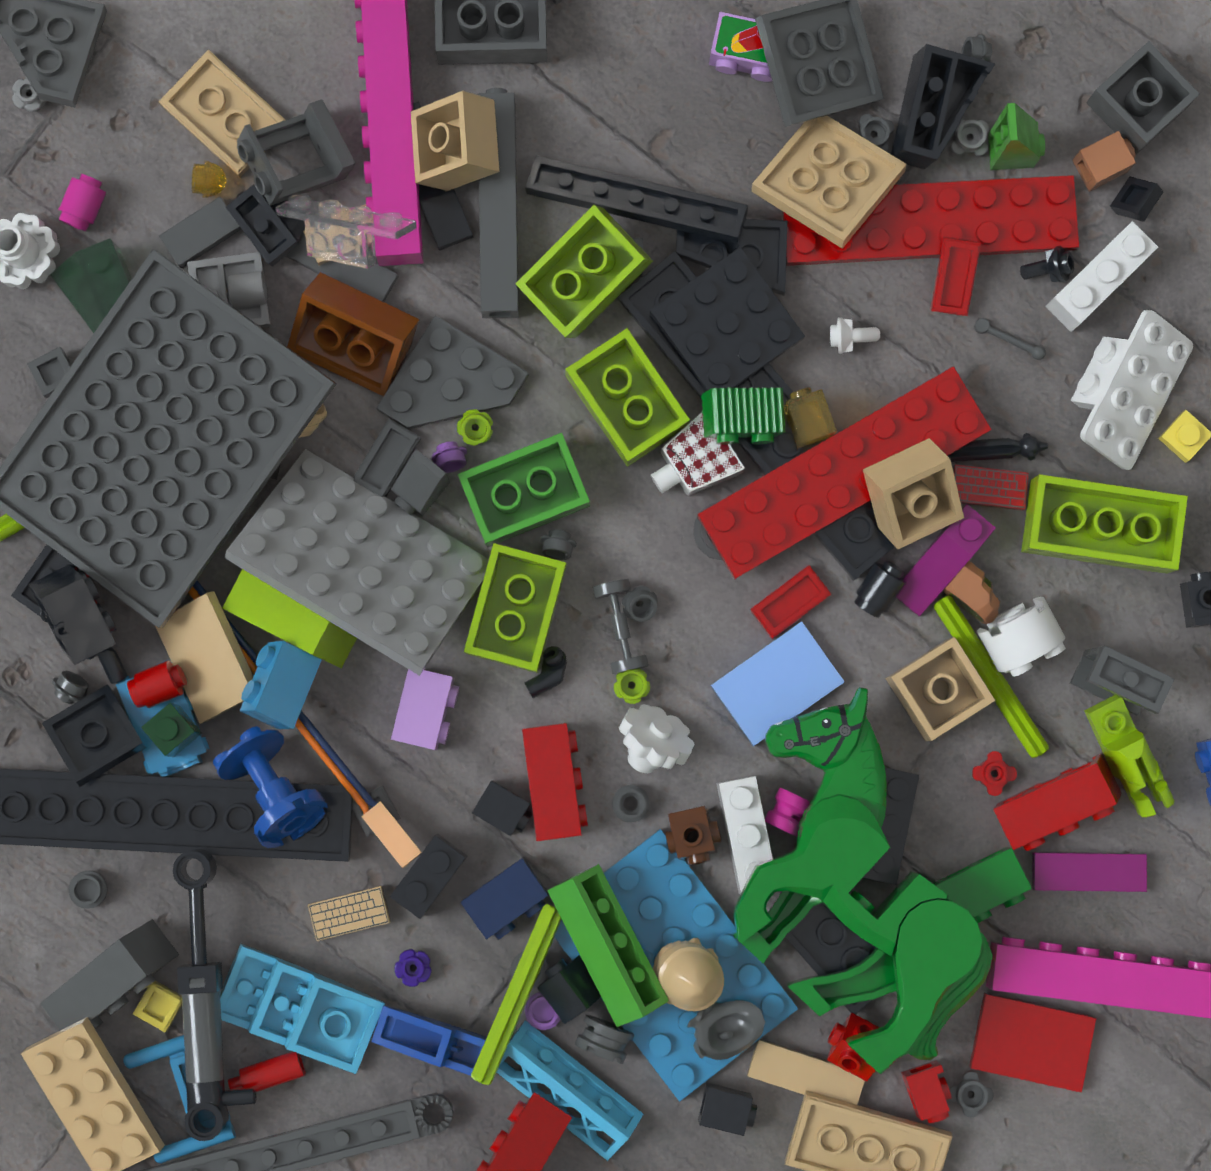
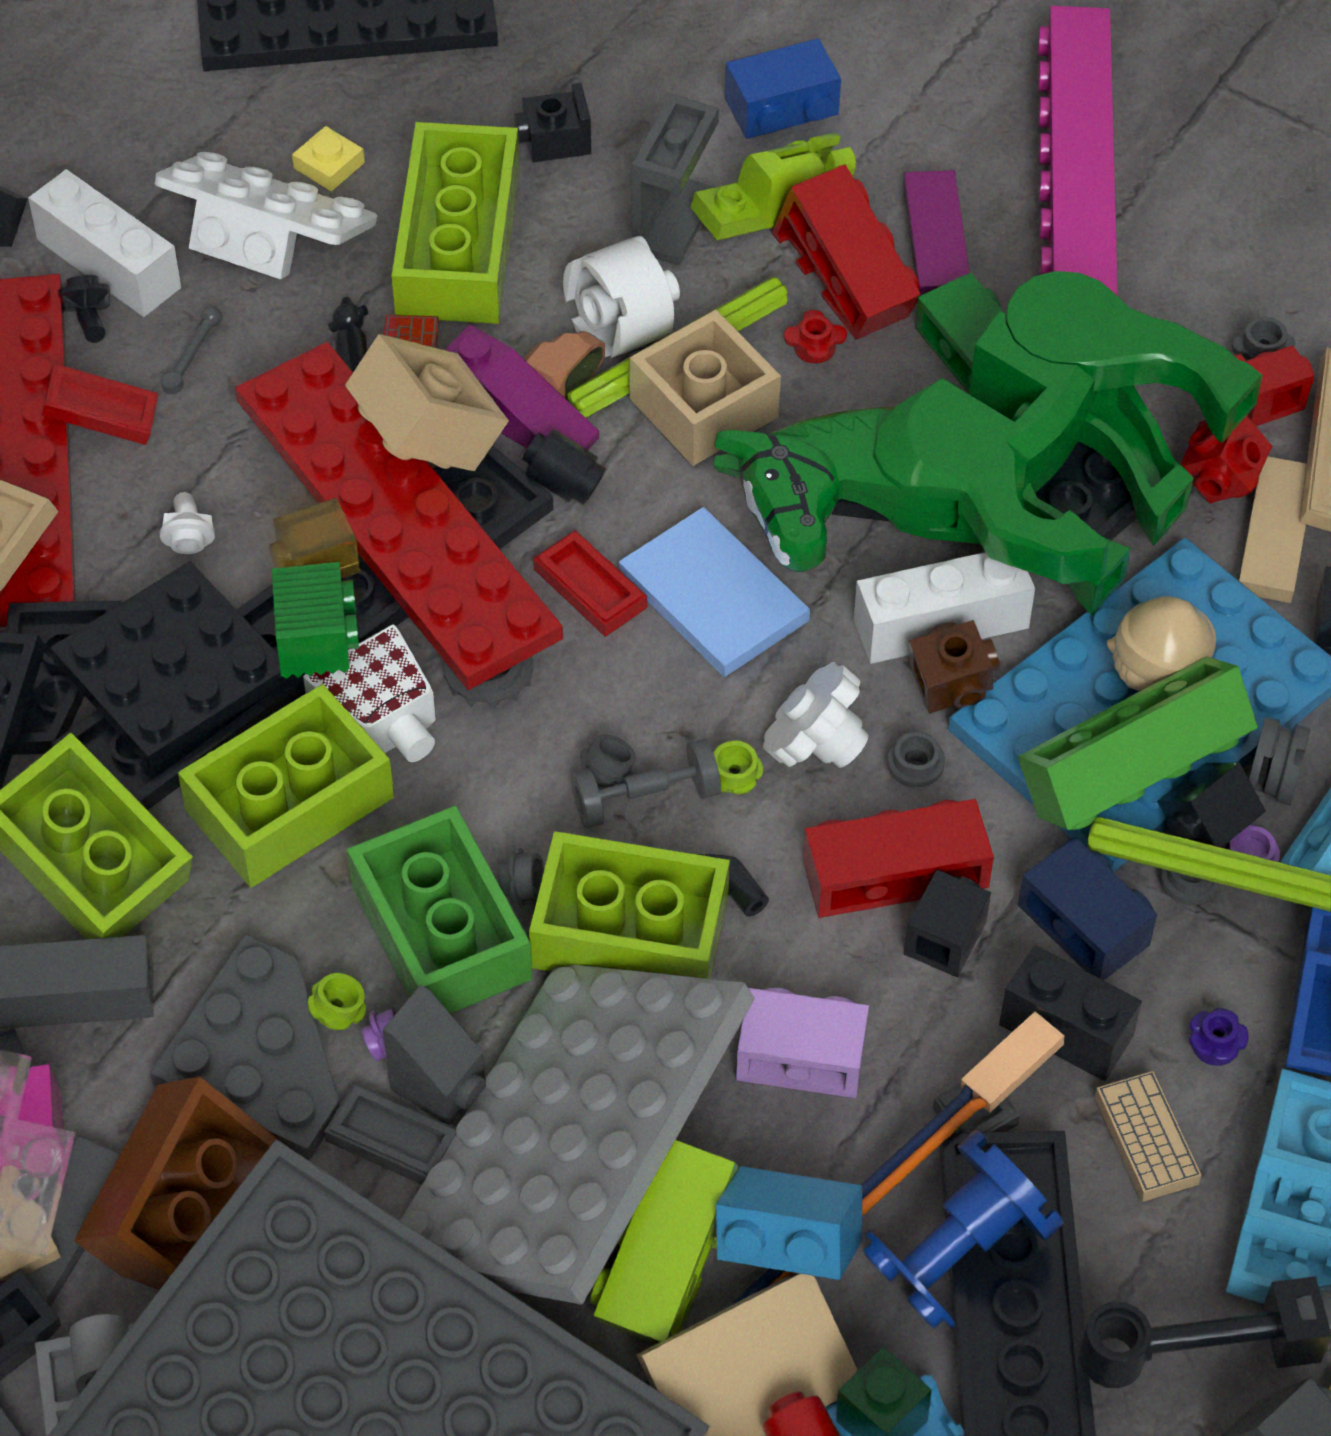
camera: 90 degrees left, 30 degrees down
(726, 1029) = (1231, 598): dark grey hat -> none
(787, 811) = (894, 553): dark pink wheel -> none
(1032, 1042) = (1182, 273): red tile -> none

